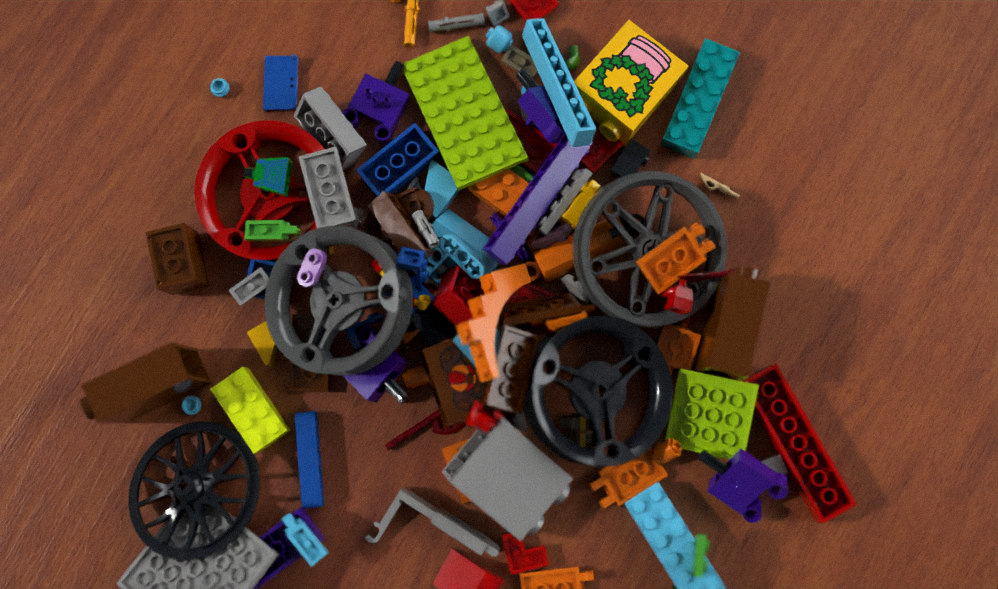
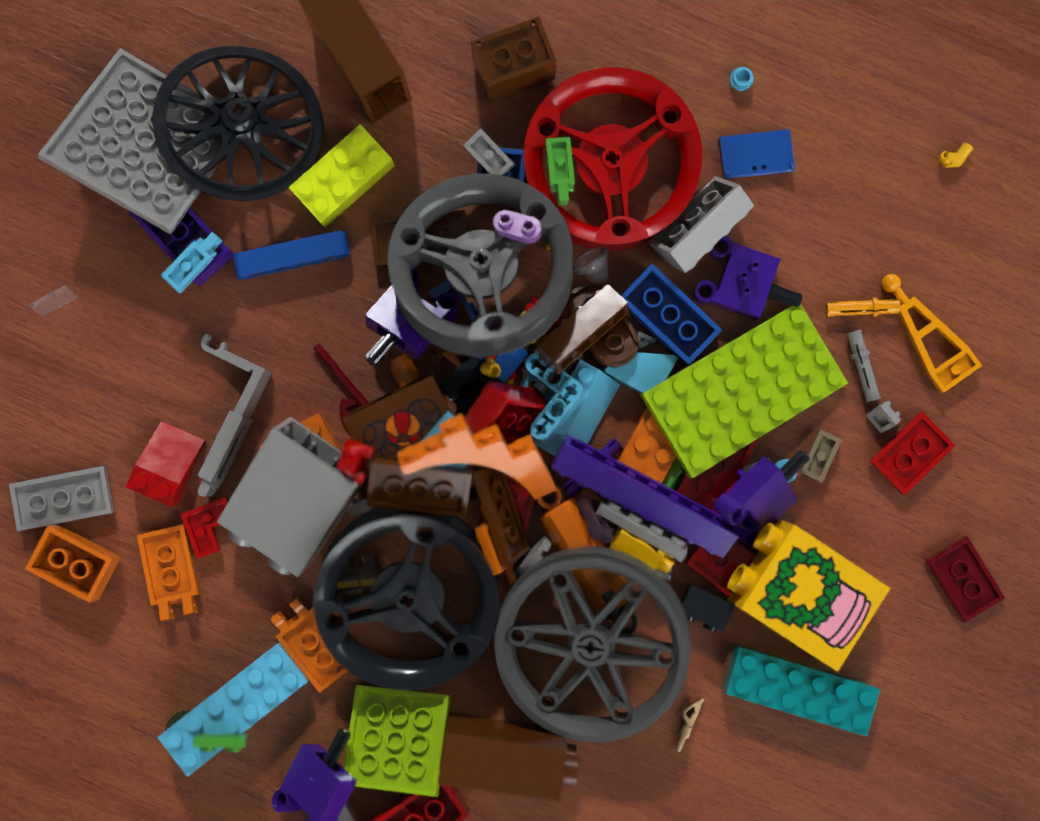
camera: 80 degrees right, 5 degrees up
(191, 405) = (341, 104): medium azure plate -> none
(264, 343) = (423, 179): yellow slope -> none
(271, 175) = (631, 160): green torso -> none
(327, 188) = (621, 231): light grey plate -> none
(414, 260) = (540, 351): blue bracket -> none
(425, 229) = (585, 360): light grey pin -> none
(499, 39) = (847, 423): medium azure head -> none
(558, 83) = (794, 506): medium azure brick -> none
(574, 60) = (831, 522): bright green arm -> none
(666, 451) = (346, 688): orange brick -> none
(674, 257) = (583, 677): orange tile -> none
(678, 345) = (478, 691): orange plate -> none
(679, 298) = (532, 687): red piece -> none
(701, 276) = (564, 711): dark red piece -> none

